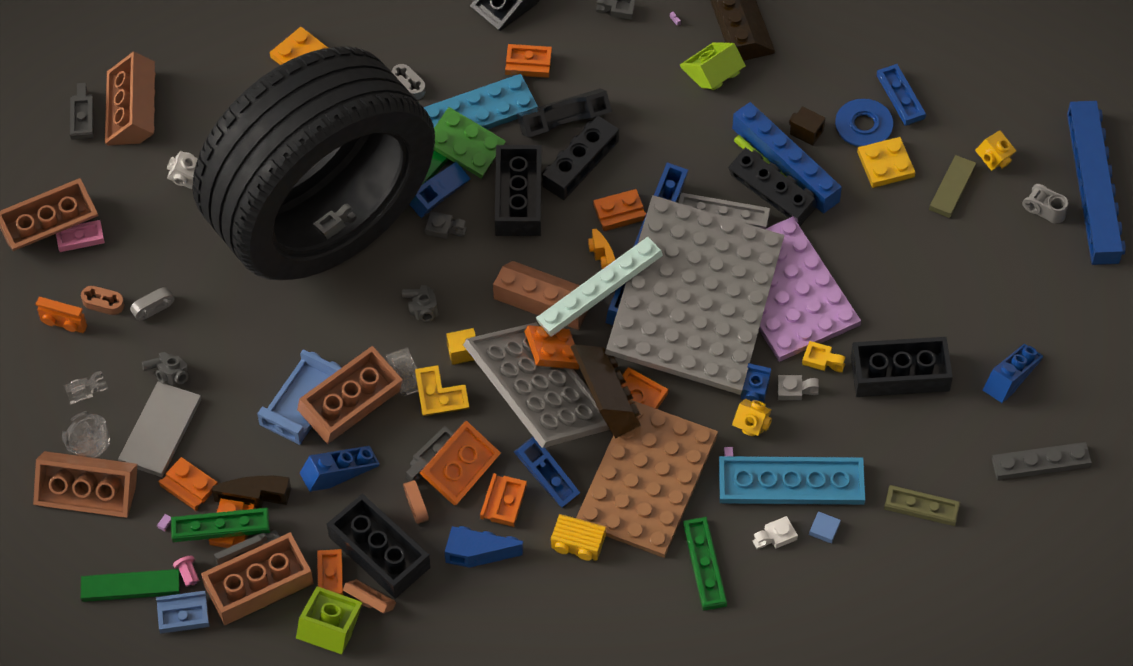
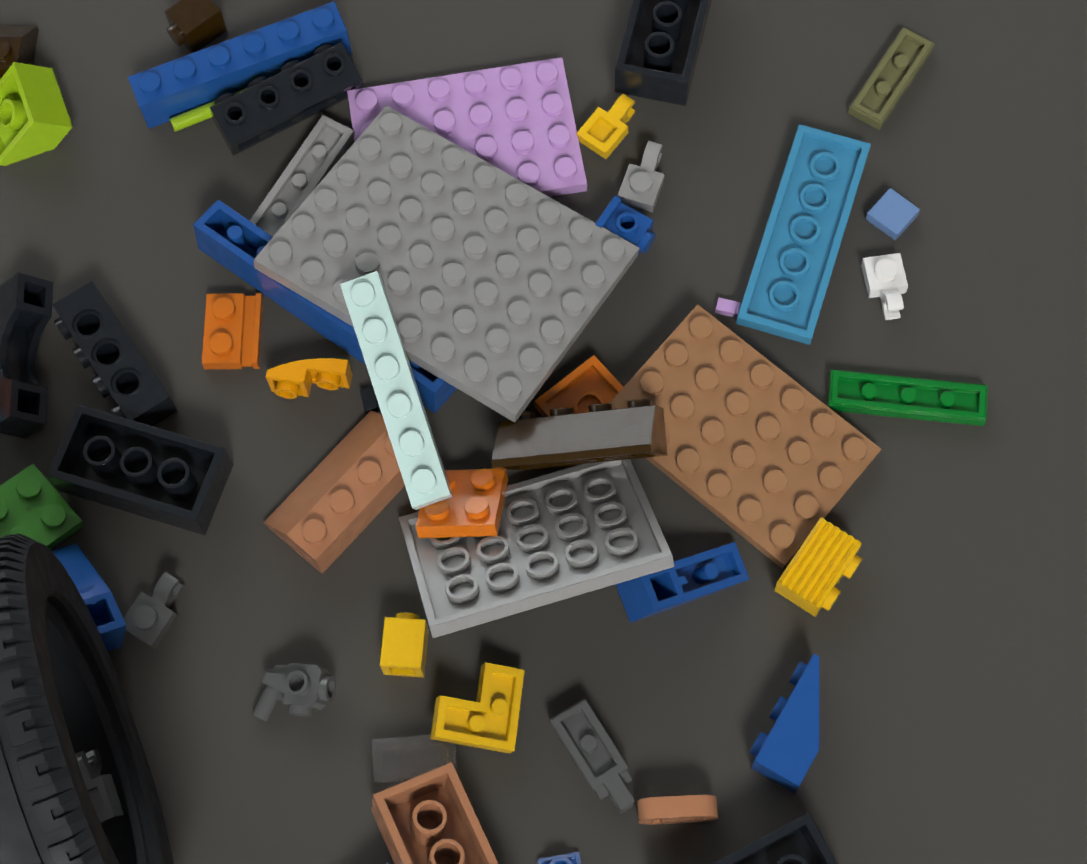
camera: 70 degrees left, 10 degrees up
(460, 463) = (631, 714): orange plate -> none
(503, 500) = (714, 665): orange plate -> none
(752, 417) = (686, 250): yellow brick -> none

